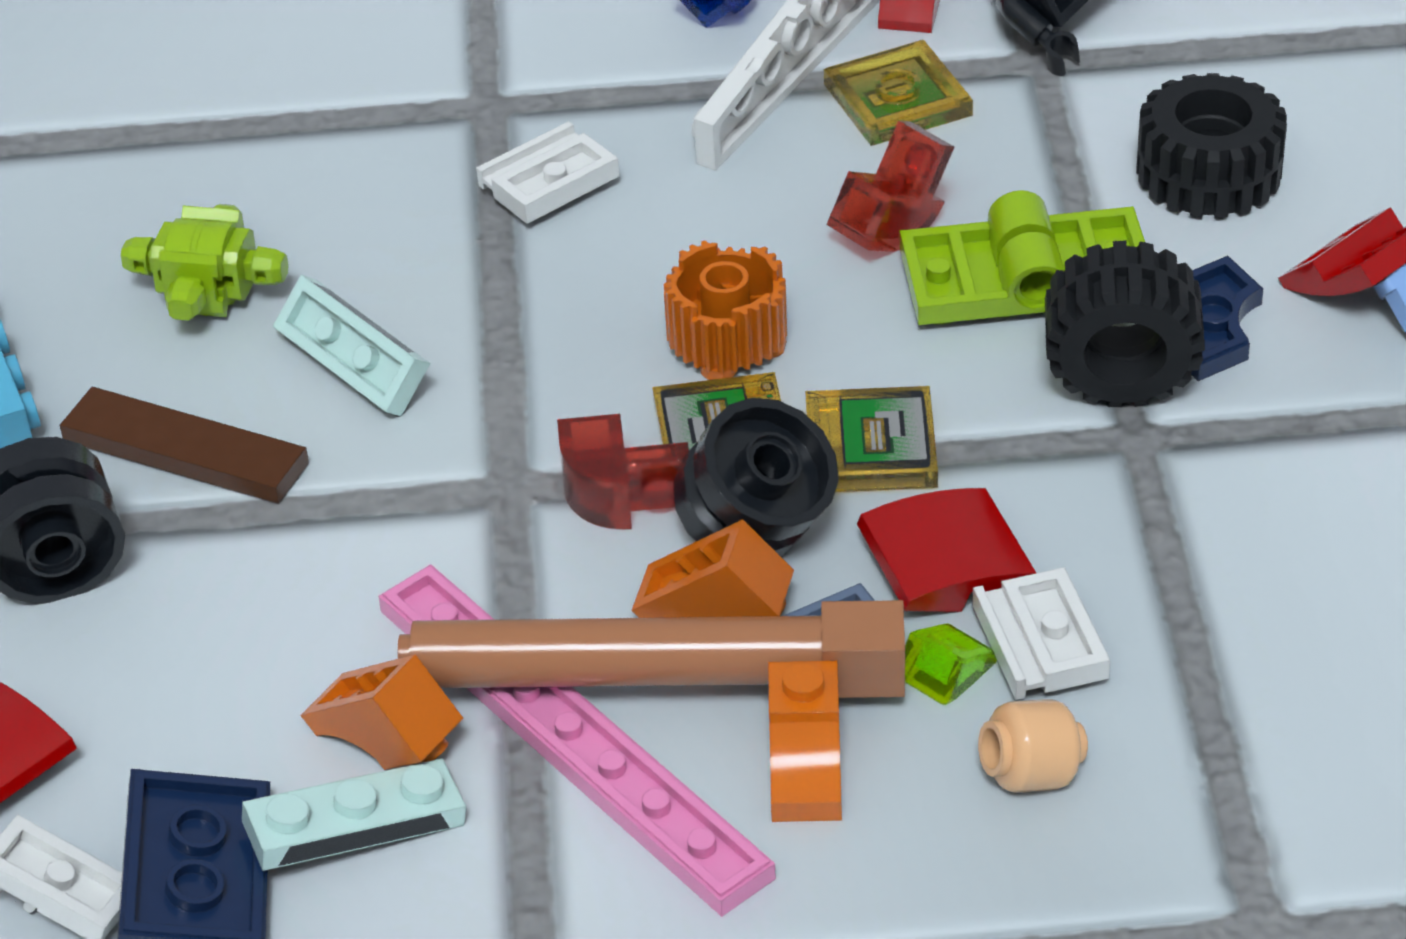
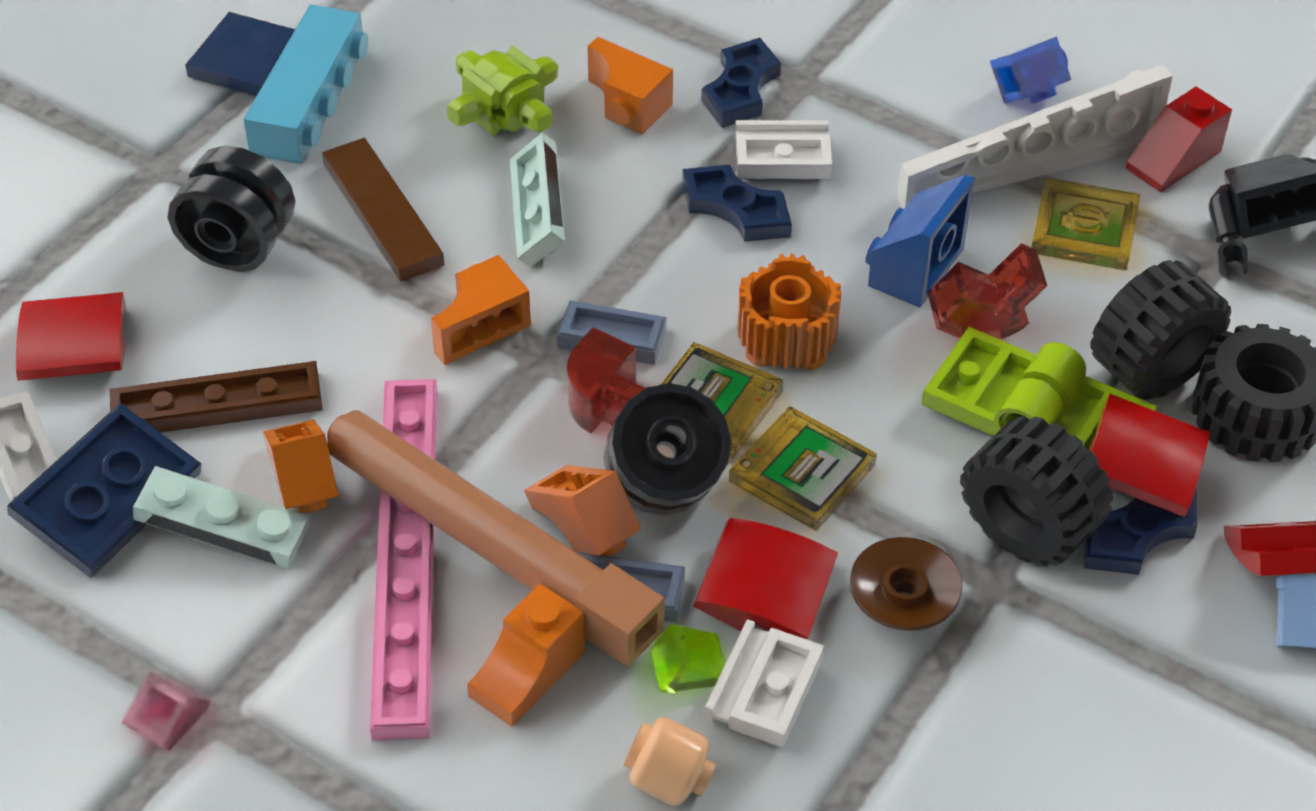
camera: 35 degrees right, 5 degrees up
(214, 712) = (224, 397): none -> reddish brown tile
(325, 189) = (633, 86): none -> orange arch
(411, 468) = (486, 309): none -> orange arch
(436, 146) = (737, 89): none -> dark blue tile
(531, 432) = (635, 328): none -> sand blue tile
(572, 244) = (751, 210): none -> dark blue tile
(779, 176) = (921, 241): none -> blue slope
(1076, 475) = (911, 568): none -> reddish brown dish
(1086, 133) = (1159, 329): none -> black tyre
(1187, 229) = (1149, 454): none -> red slope

